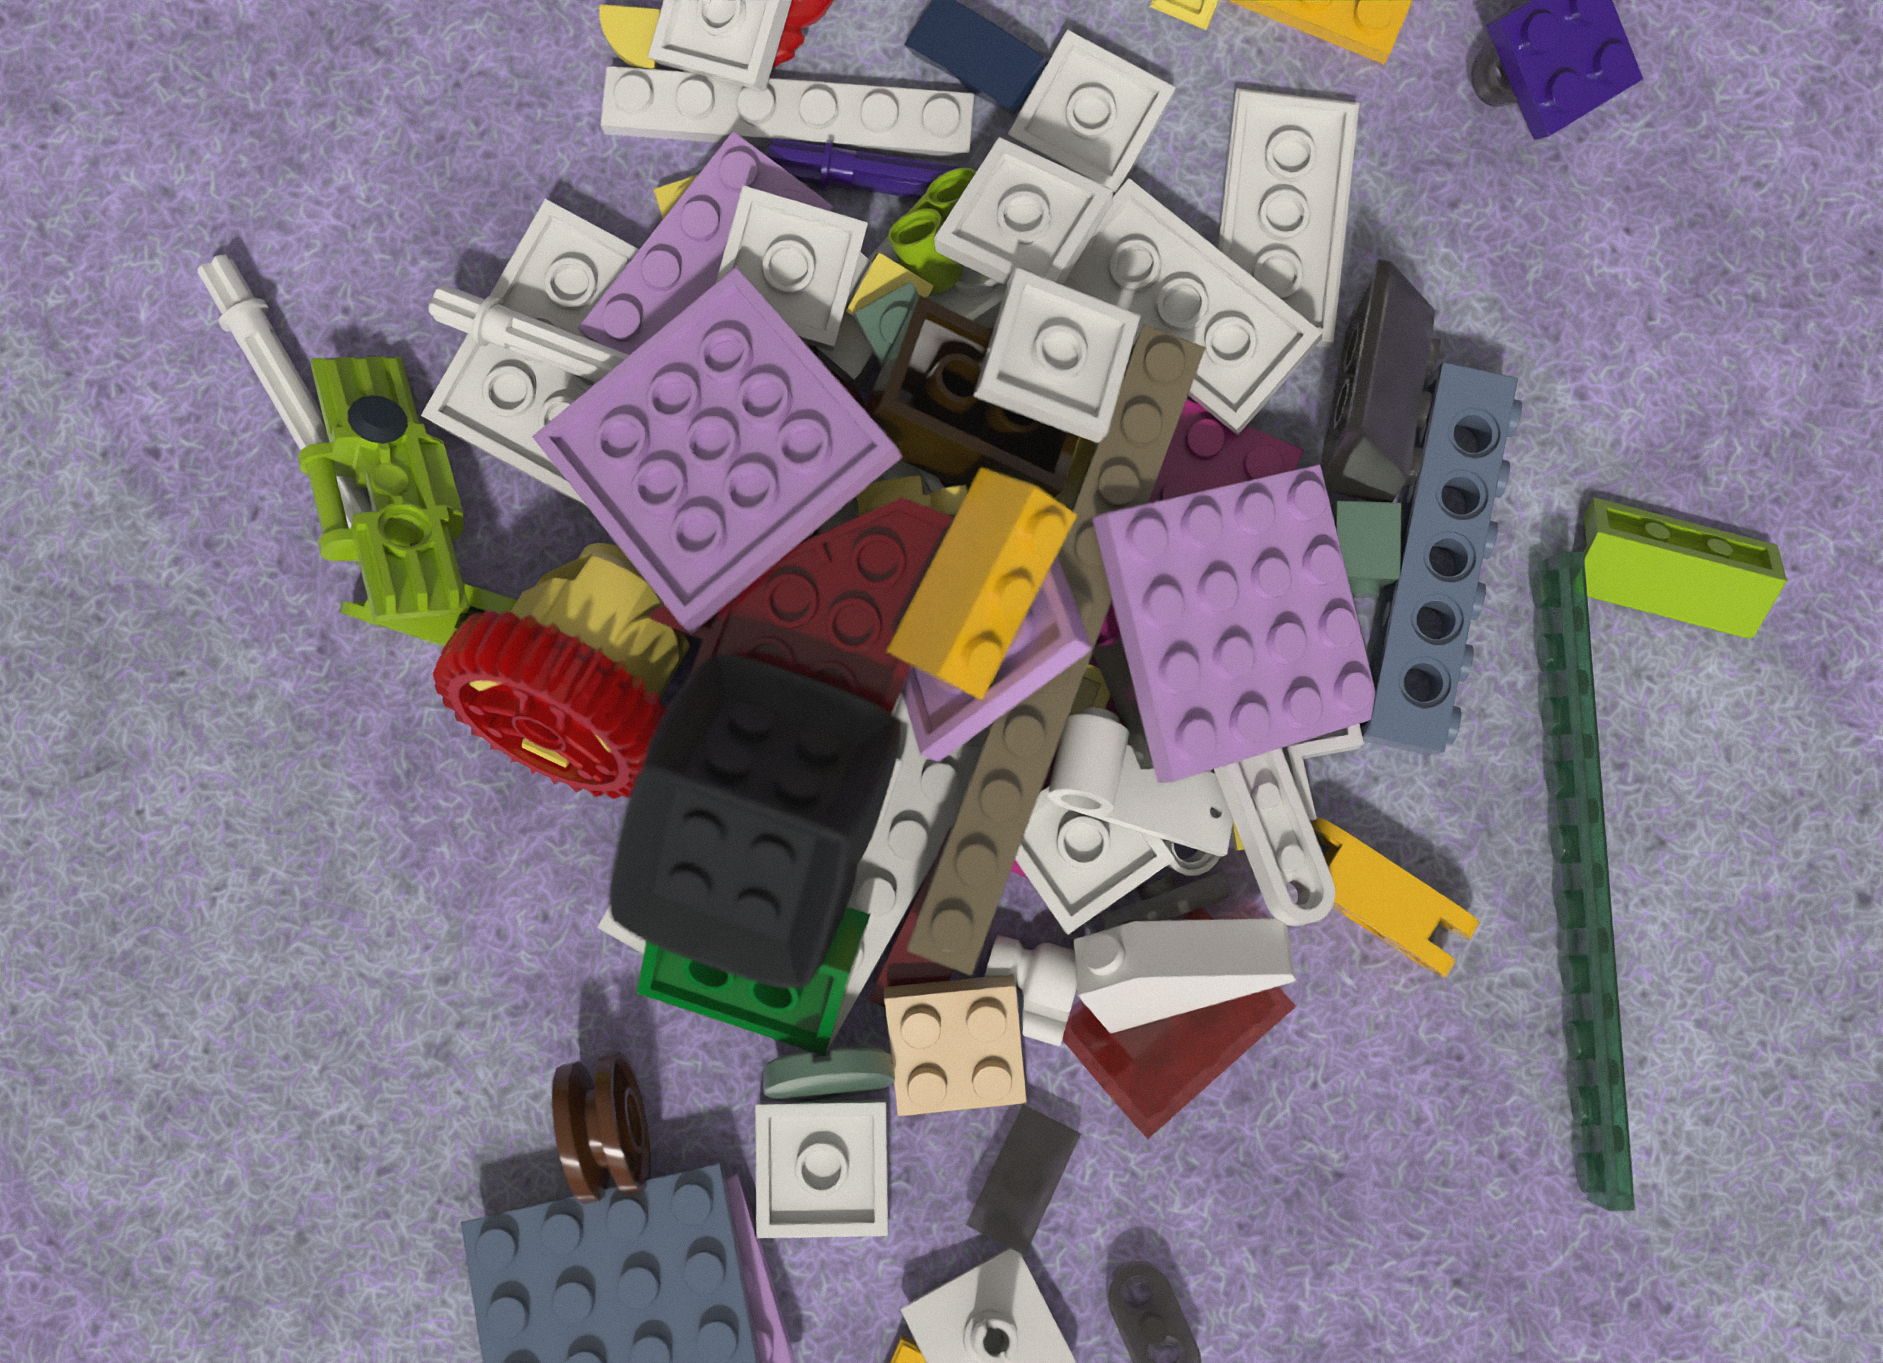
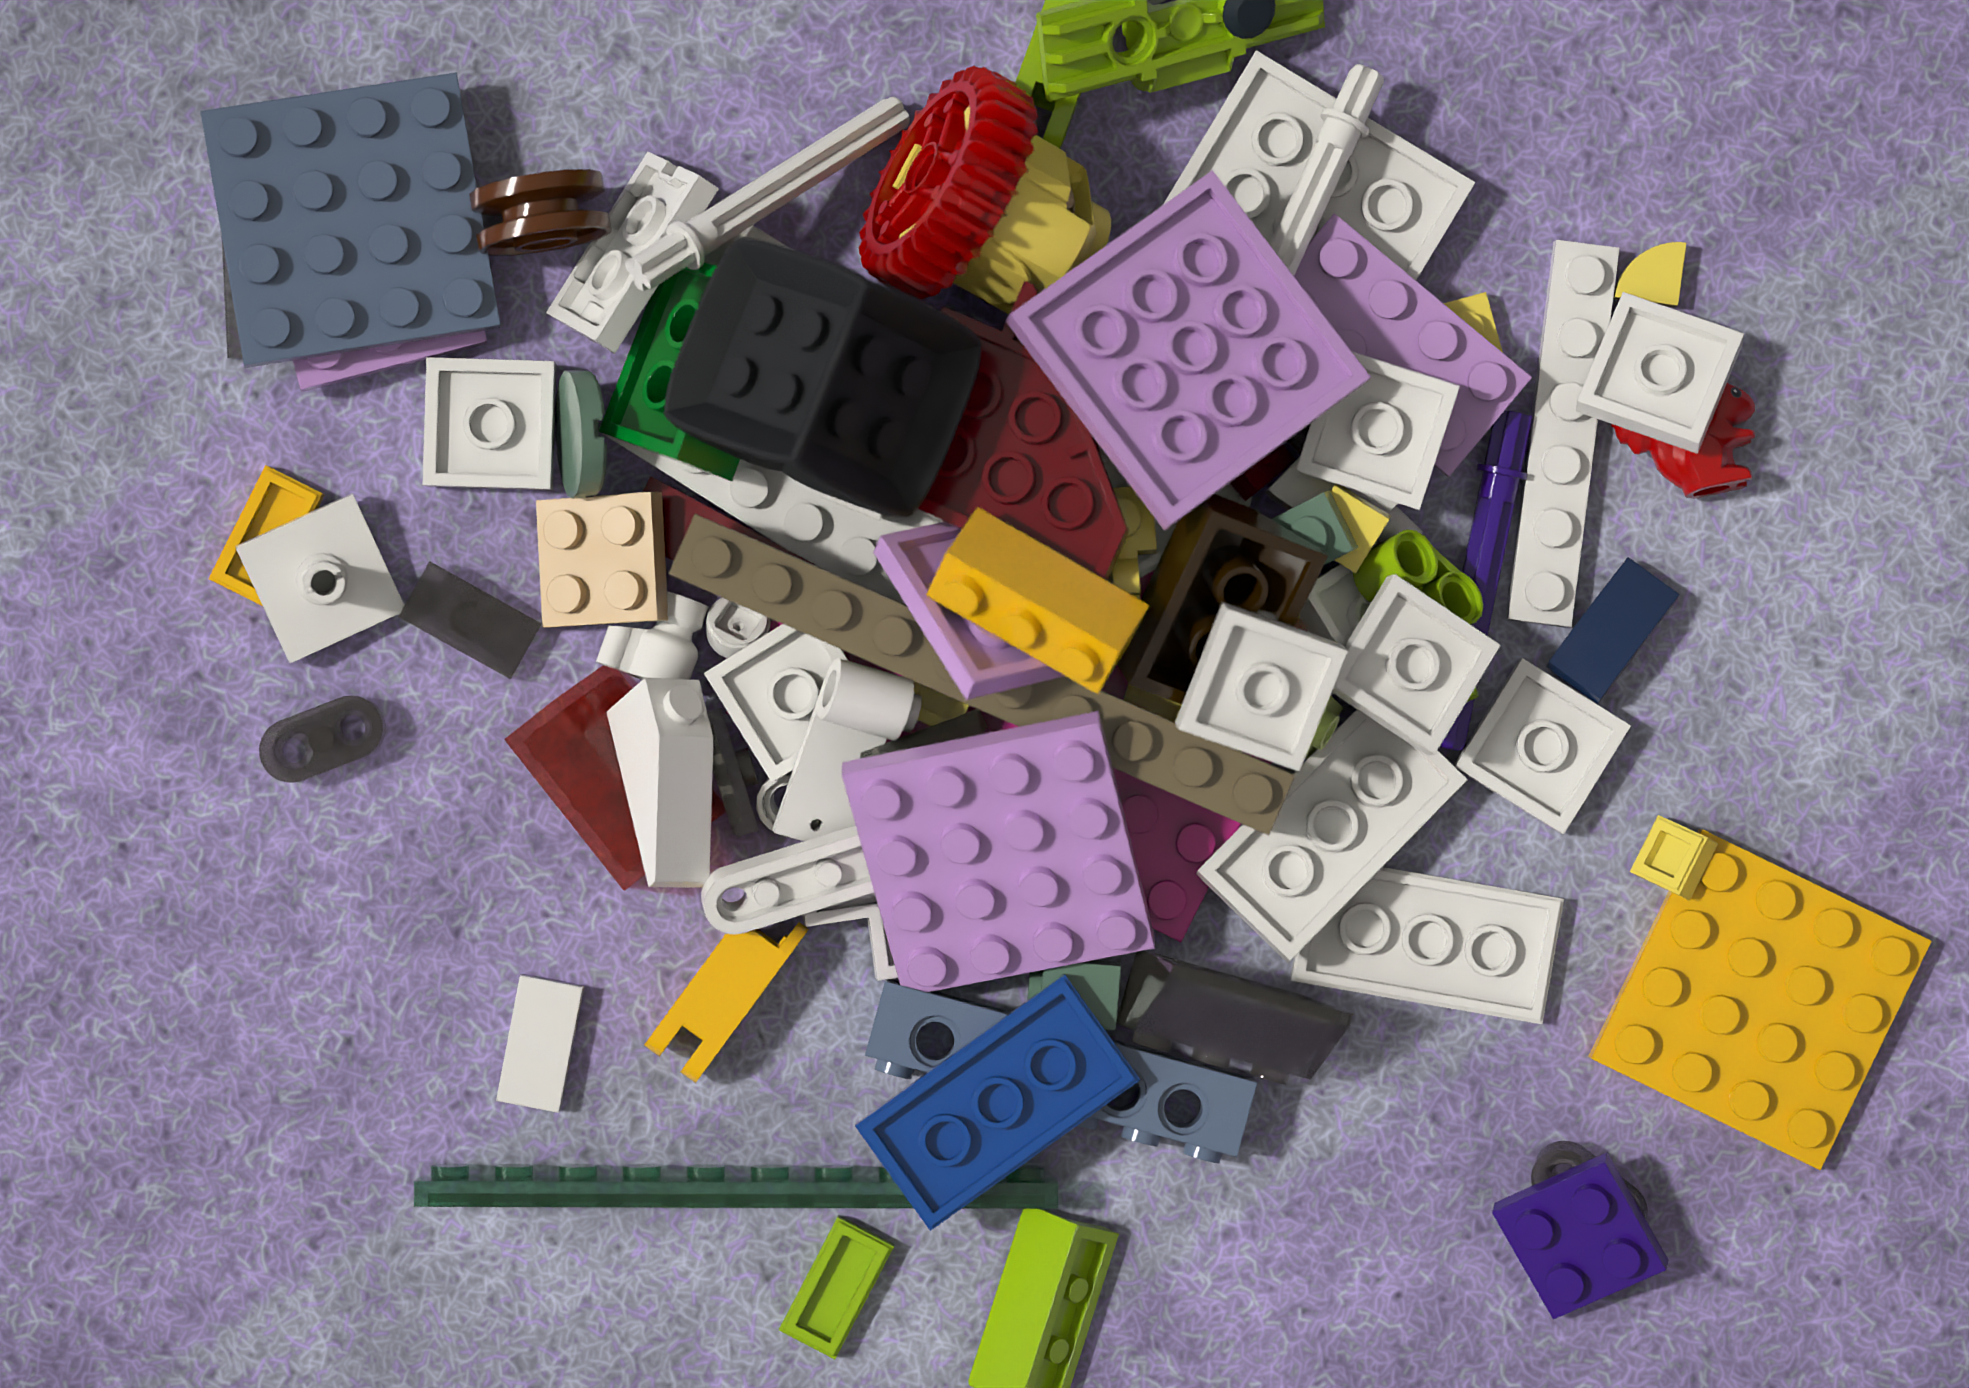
camera: 85 degrees right, 5 degrees up
(621, 967) = (691, 241): none -> white axle
(650, 1031) = (600, 292): none -> white piece
(1019, 908) = (733, 627): none -> white tile
(1447, 1084) = (540, 1043): none -> white tile
(1485, 616) = (997, 1102): none -> blue tile
(1668, 773) = (836, 1287): none -> lime tile

